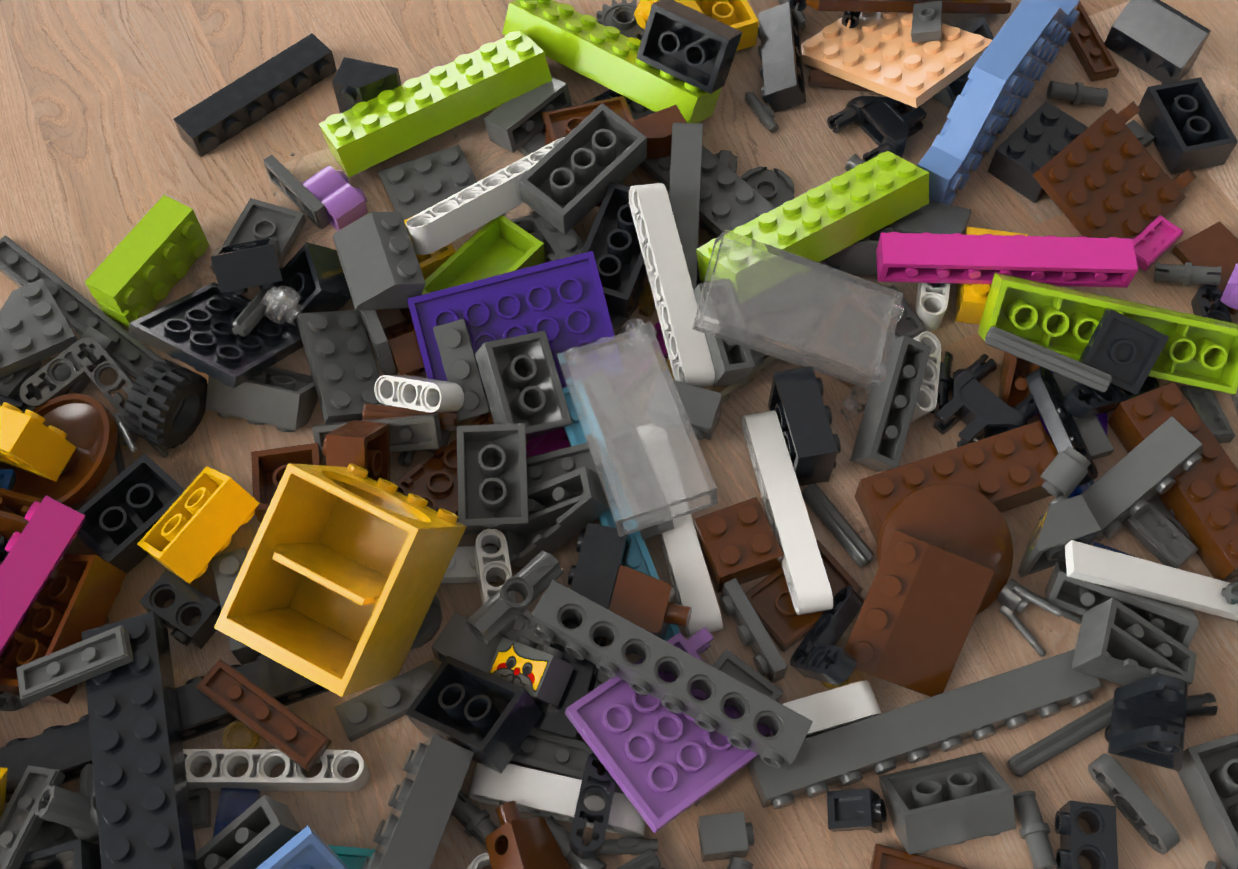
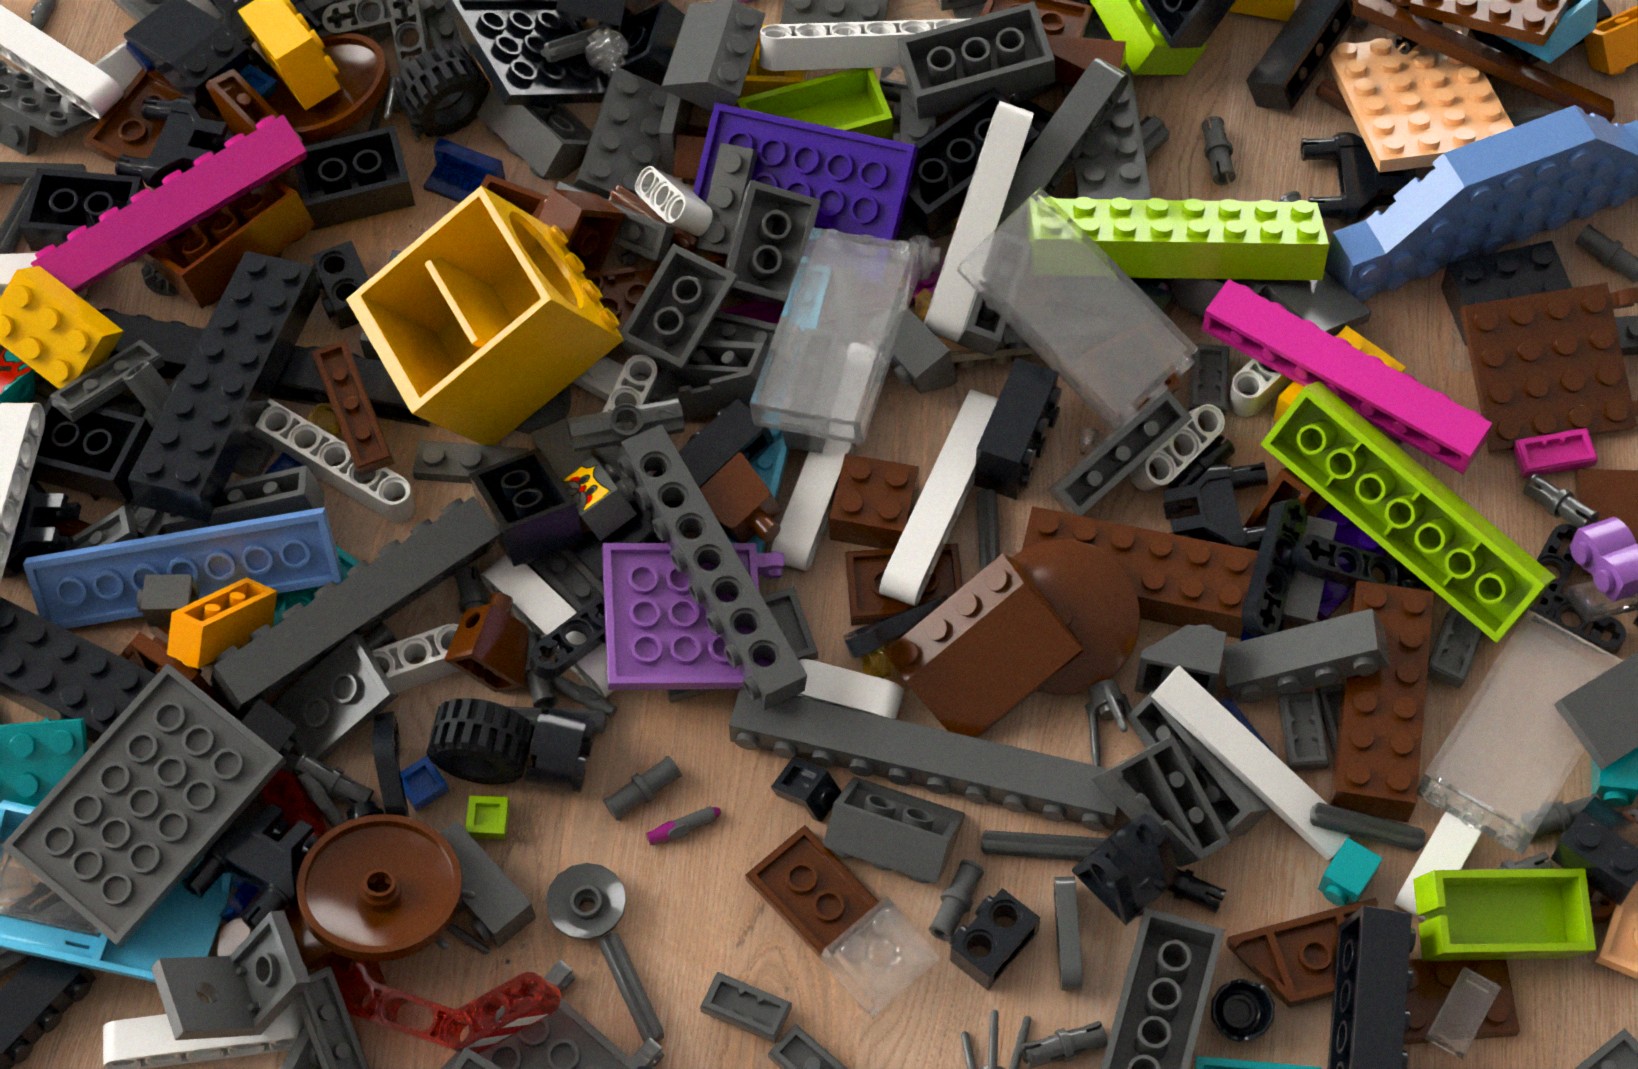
camera: 35 degrees right, 0 degrees up
(74, 664) = (223, 272): dark grey tile -> none
(199, 524) = (396, 213): yellow brick -> none
(226, 456) = (460, 170): none -> clear blue panel
(724, 836) = (673, 736): dark grey brick -> none
(752, 632) = (829, 586): dark grey plate -> none
(763, 112) = (1240, 98): dark grey piece -> none
(771, 184) = (1178, 177): dark grey tile -> none
(778, 153) = (1218, 150): none -> dark grey pin
(927, 21) = (1473, 85): dark grey plate -> none
(1048, 359) = (1305, 494): dark grey axle -> none
(1065, 473) = (1229, 606): dark grey brick -> none
(1123, 350) = (1388, 527): black plate -> none

